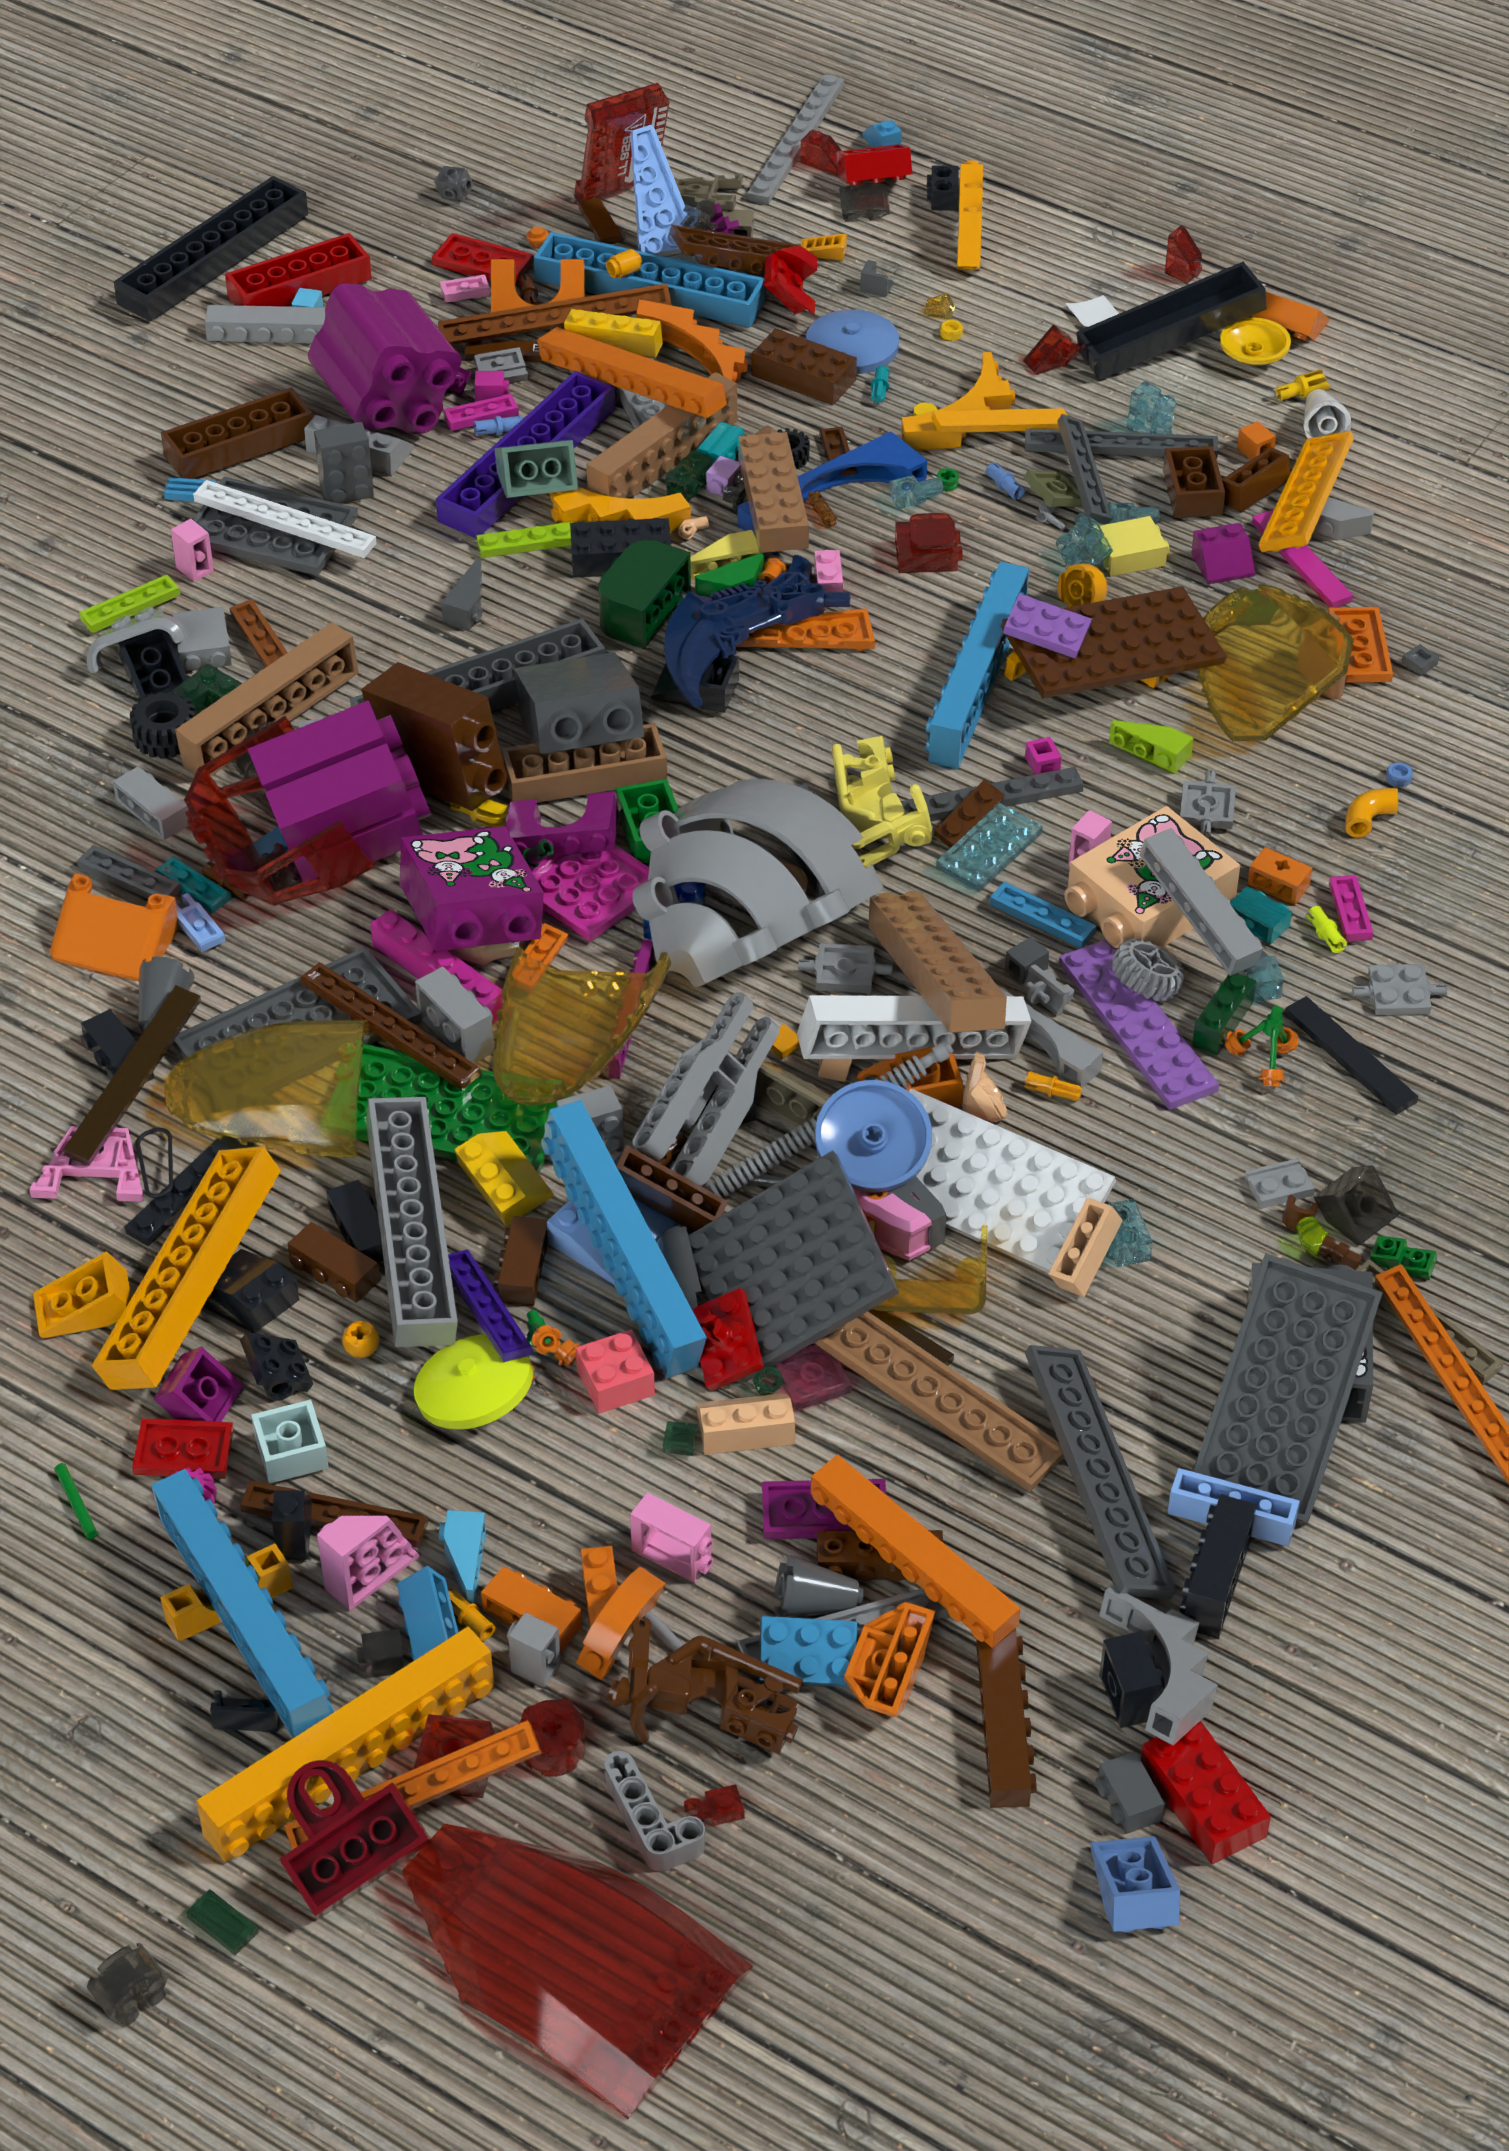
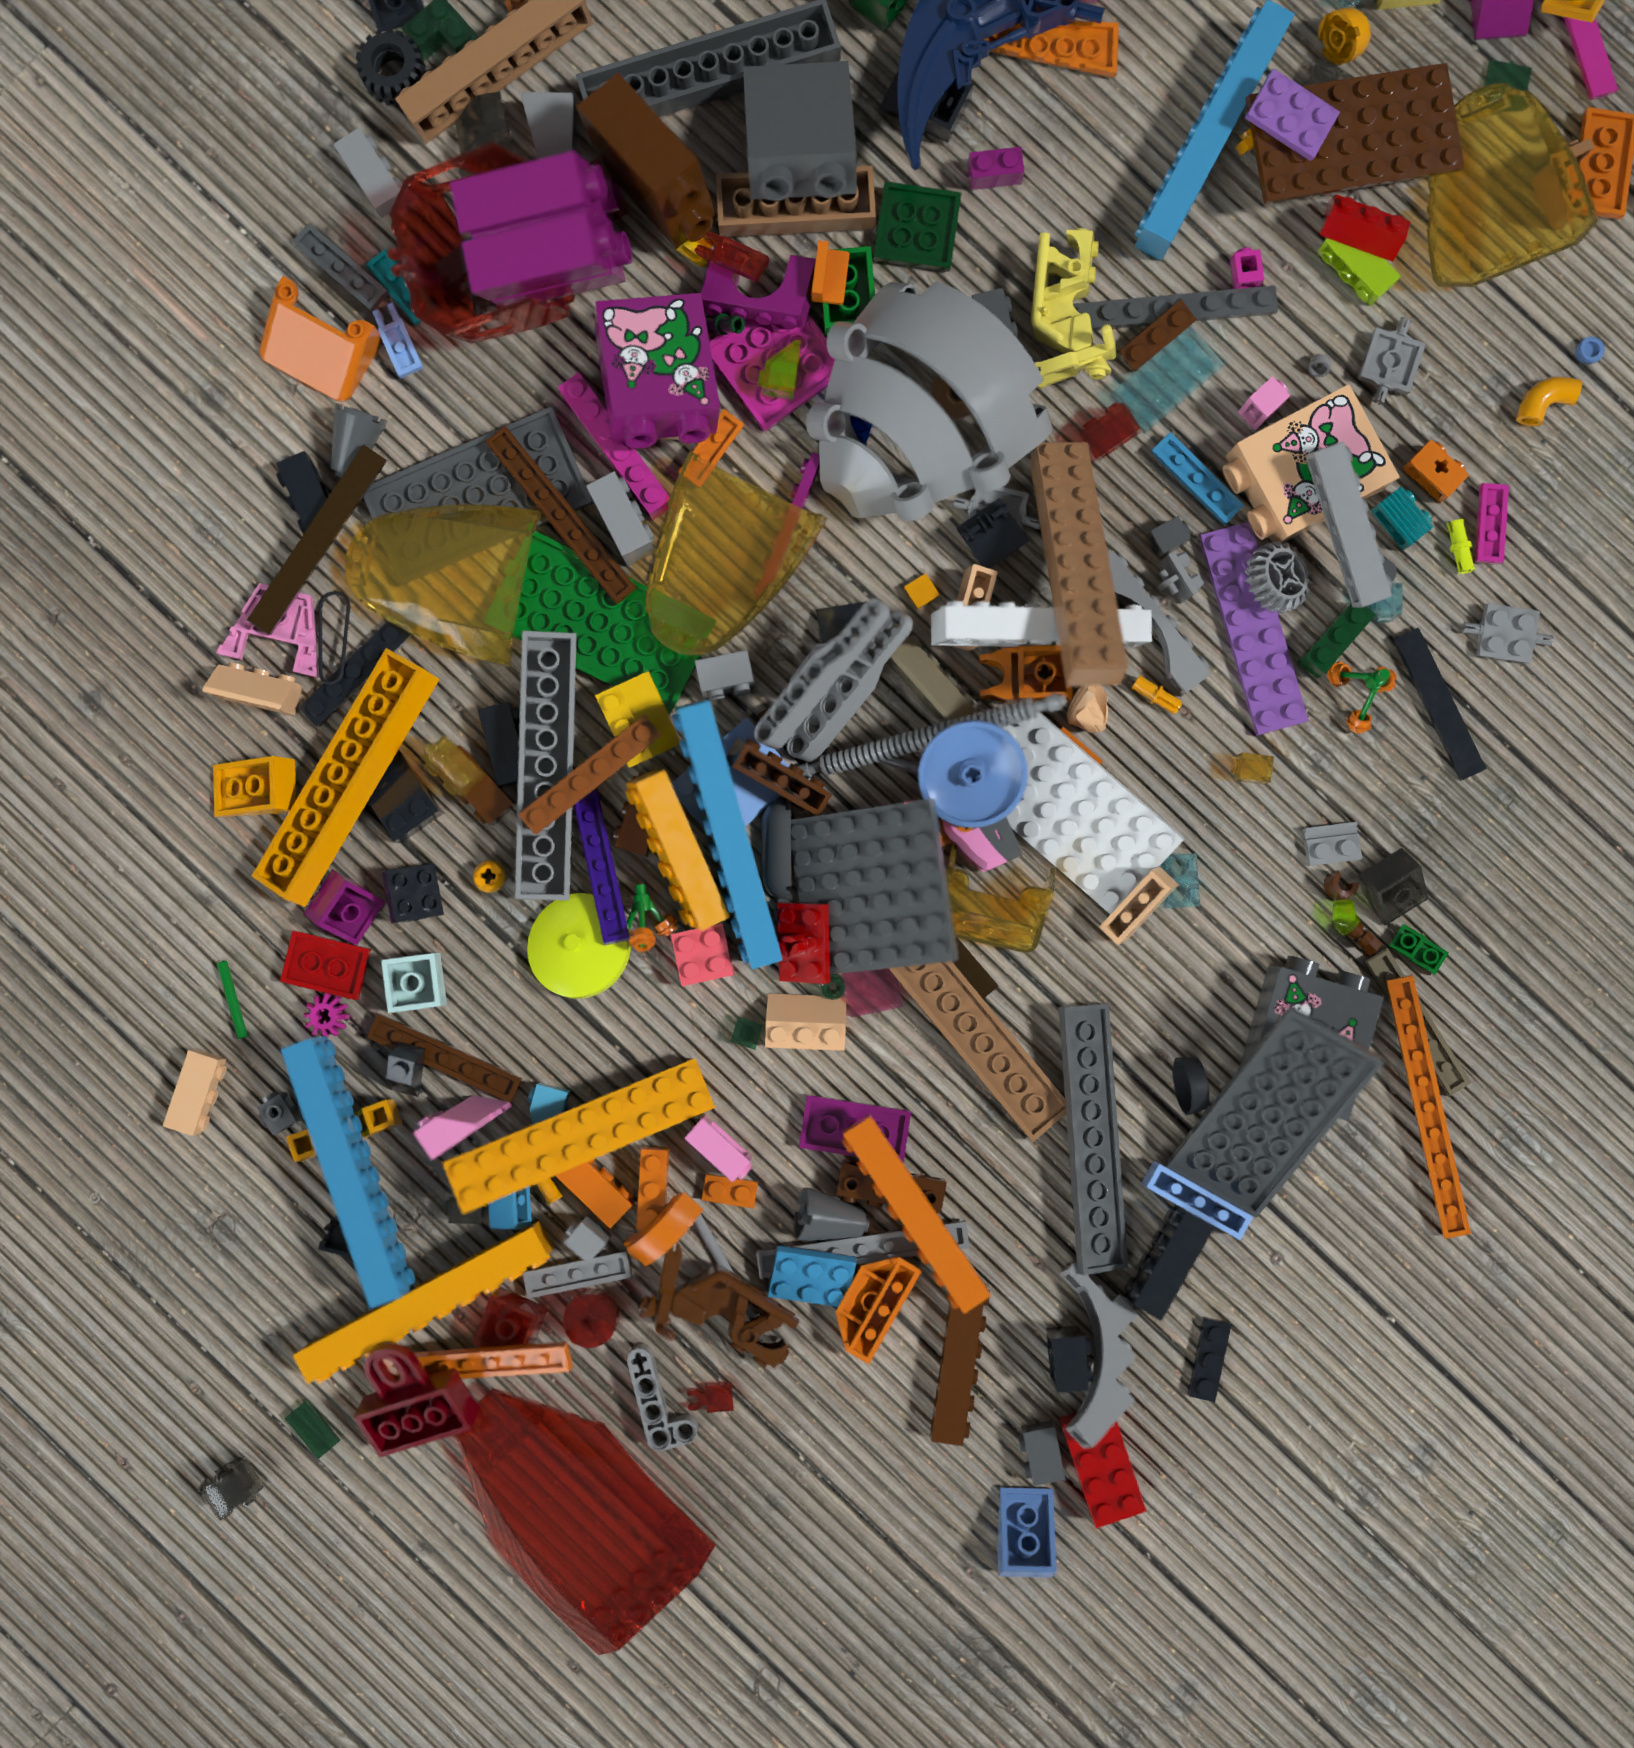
camera: 10 degrees right, 40 degrees up
(42, 1589) = (195, 1092): none -> light nougat brick
(76, 1215) = (254, 688): none -> light nougat slope
(144, 1588) = (279, 1112): none -> flat silver brick
(307, 1231) = (452, 766): none -> clear yellow brick
(460, 1208) = (589, 774): none -> dark orange plate
(499, 1540) = (578, 1135): none -> light orange brick
(507, 1706) = (577, 1274): none -> light grey plate
(530, 800) = (733, 256): none -> clear red hinge
(567, 1261) = (676, 849): none -> light orange brick
(597, 884) = (781, 372): none -> clear neon green slope
(630, 799) = (829, 274): none -> orange panel
(693, 1594) = (724, 1191): none -> orange plate
(706, 766) = (917, 226): none -> dark green plate
(776, 719) = (995, 168): none -> magenta brick
(844, 974) = (992, 534): none -> black hinge
(946, 884) = (1110, 430): none -> clear red brick
(1131, 817) = (1319, 371): none -> light grey hinge
(1145, 704) = (1364, 227): none -> red slope
(1172, 1128) = (1252, 768): none -> clear yellow brick
(1181, 1401) = (1190, 1085): none -> black tyre
(1300, 1672) = (1209, 1359): none -> black plate

